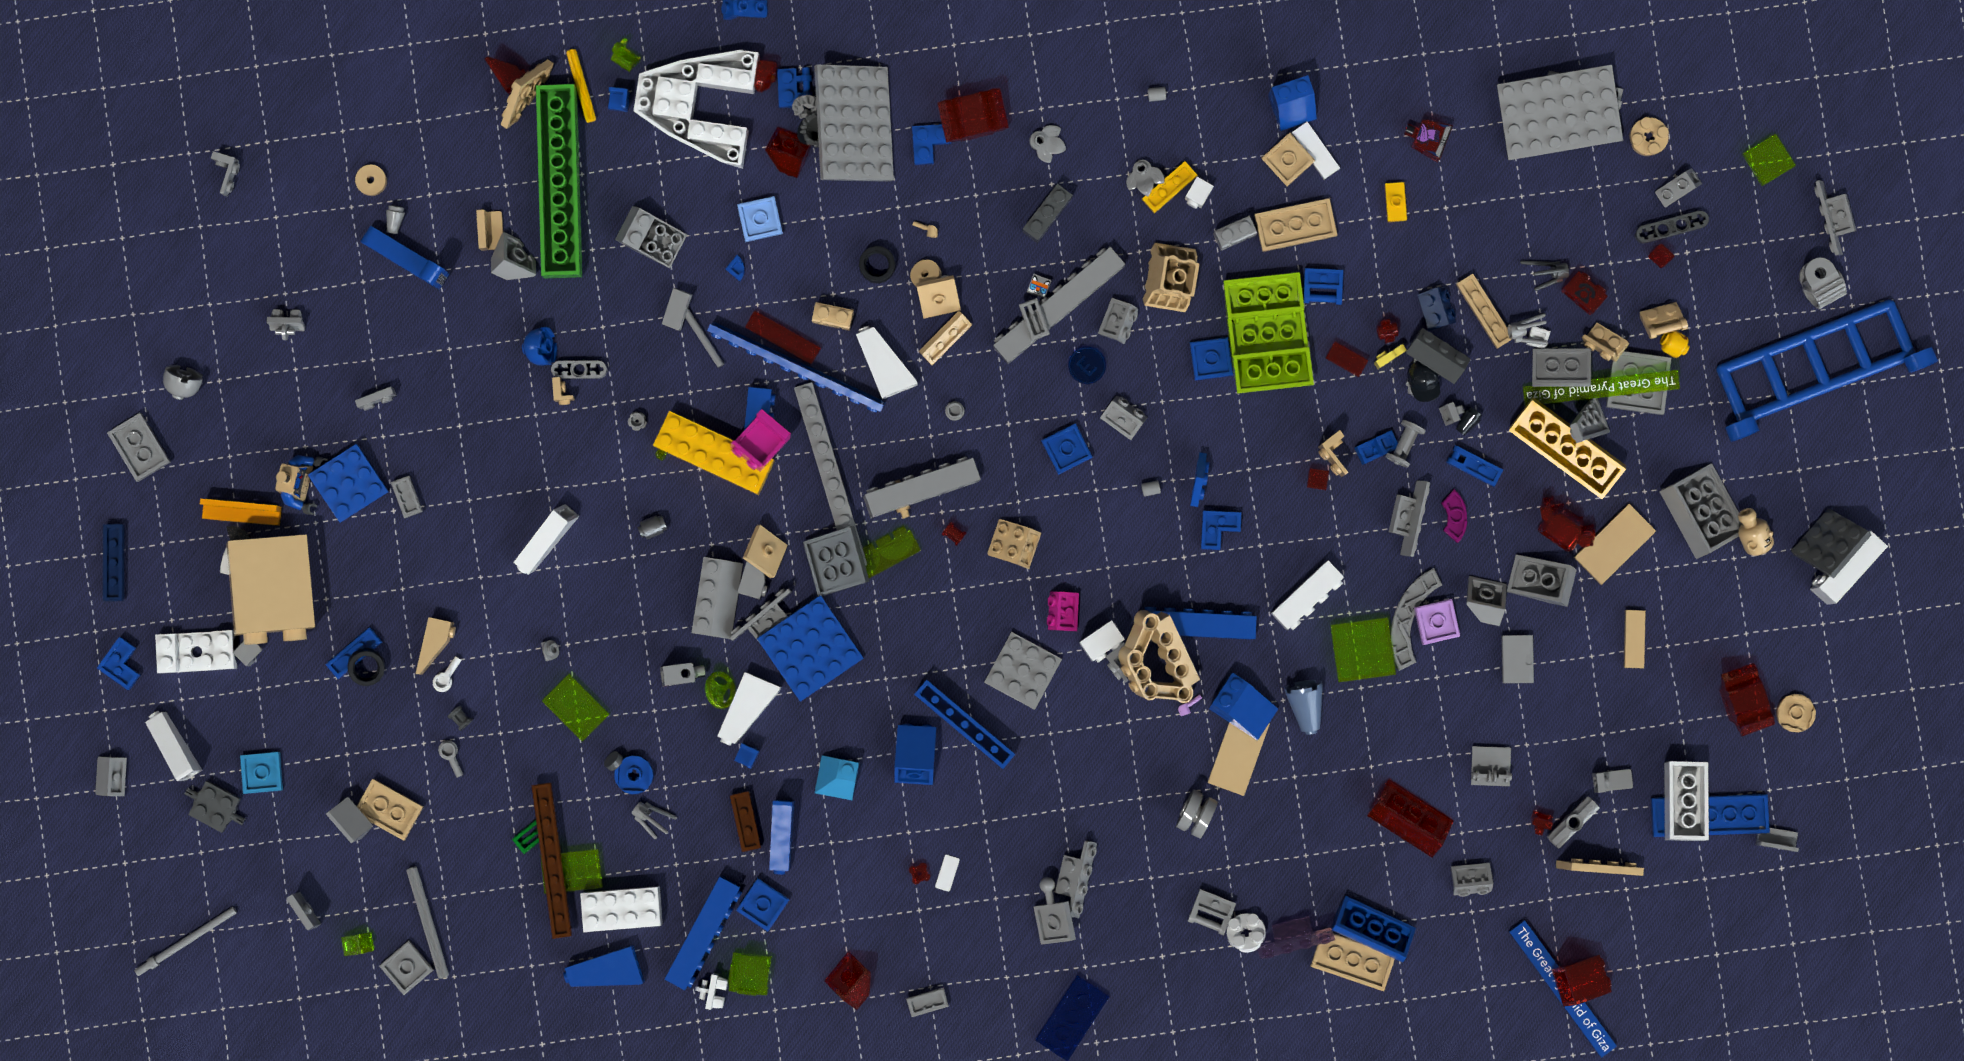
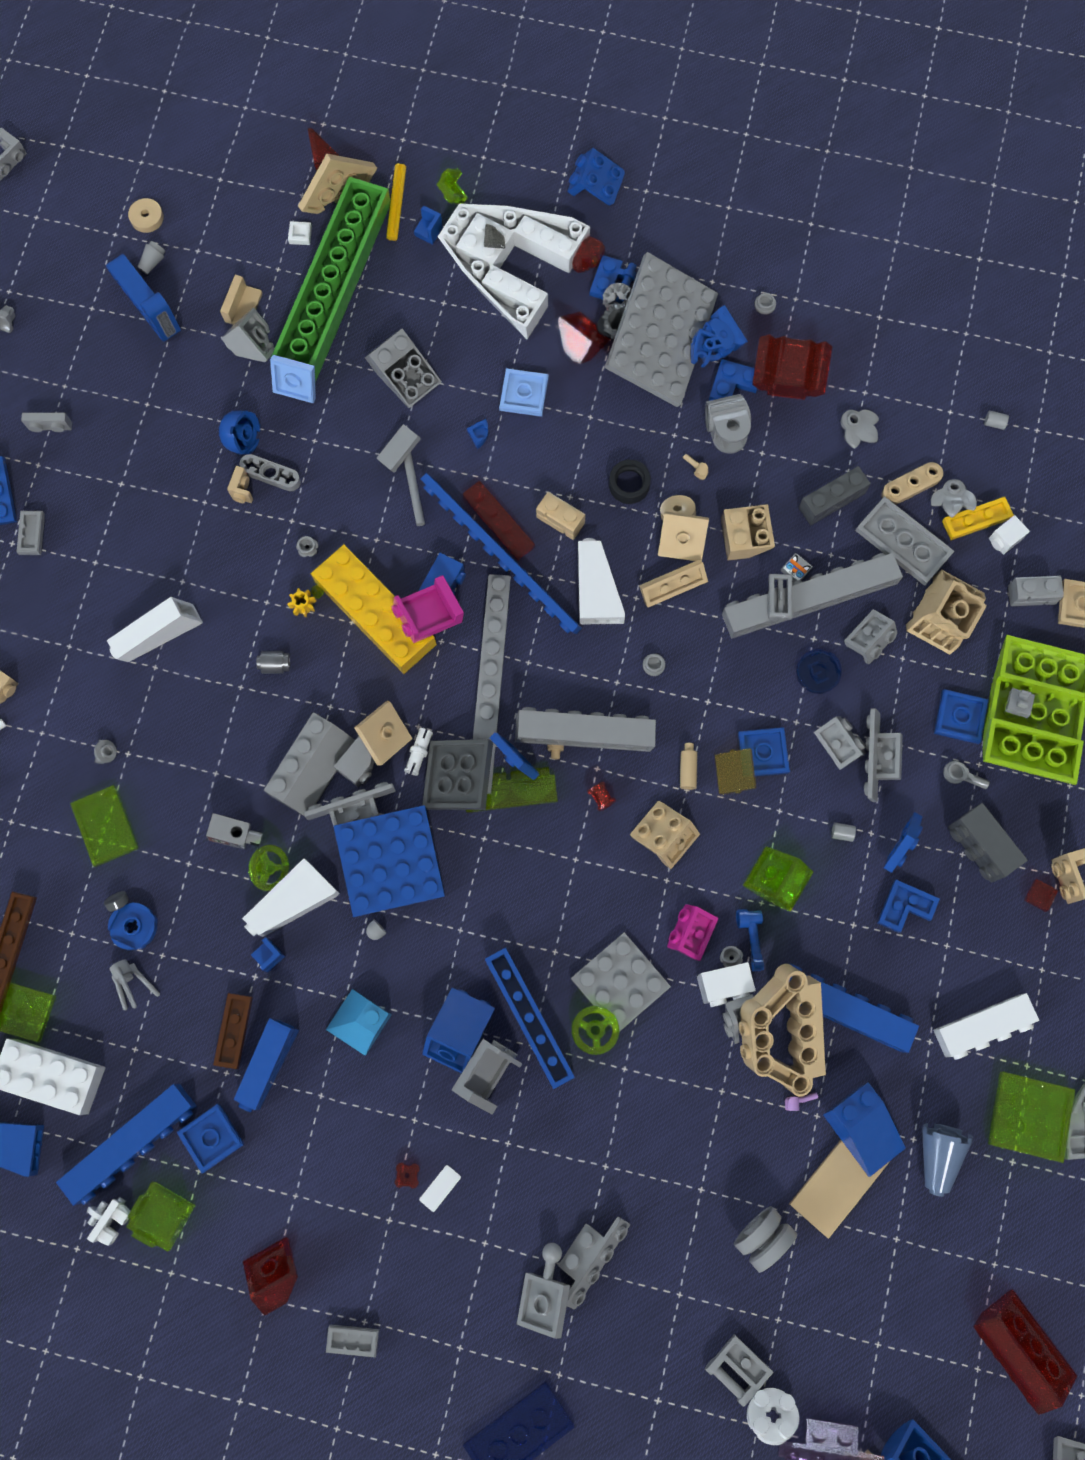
camera: 20 degrees right, 10 degrees down
(510, 145) = (300, 233): none -> white tile
(566, 284) = (293, 378): none -> light blue plate
(651, 465) = (301, 596): none -> yellow gear
(682, 96) = (493, 237): none -> clear smoke tile
(797, 554) = (418, 751): none -> white pin
(821, 705) = (375, 930): none -> light grey hinge
(875, 530) = (514, 757): none -> blue plate
(901, 110) = (717, 337): none -> blue piece
(930, 61) = (765, 303): none -> light grey plate
(935, 175) = (728, 422): none -> light grey piece
(947, 778) = (484, 1073): none -> light grey panel
(988, 272) = (747, 531): none -> tan slope
(1013, 484) = (688, 768): none -> tan cylinder
(1025, 701) = (597, 1048): none -> clear neon green piece
(1050, 473) = (735, 771): none -> clear yellow piece
(1095, 618) = (731, 951): none -> light grey plate
(1101, 182) = (907, 489): none -> tan plate
(1104, 585) = (751, 920): none -> blue brick
(1113, 544) = (778, 878): none -> clear neon green slope
(1117, 229) = (911, 543): none -> light grey plate
(1160, 415) = (884, 756): none -> light grey bracket
(1222, 406) = (956, 772): none -> light grey plate
(1251, 333) = (1020, 702): none -> light grey tile
(1261, 457) = (987, 843): none -> dark grey brick

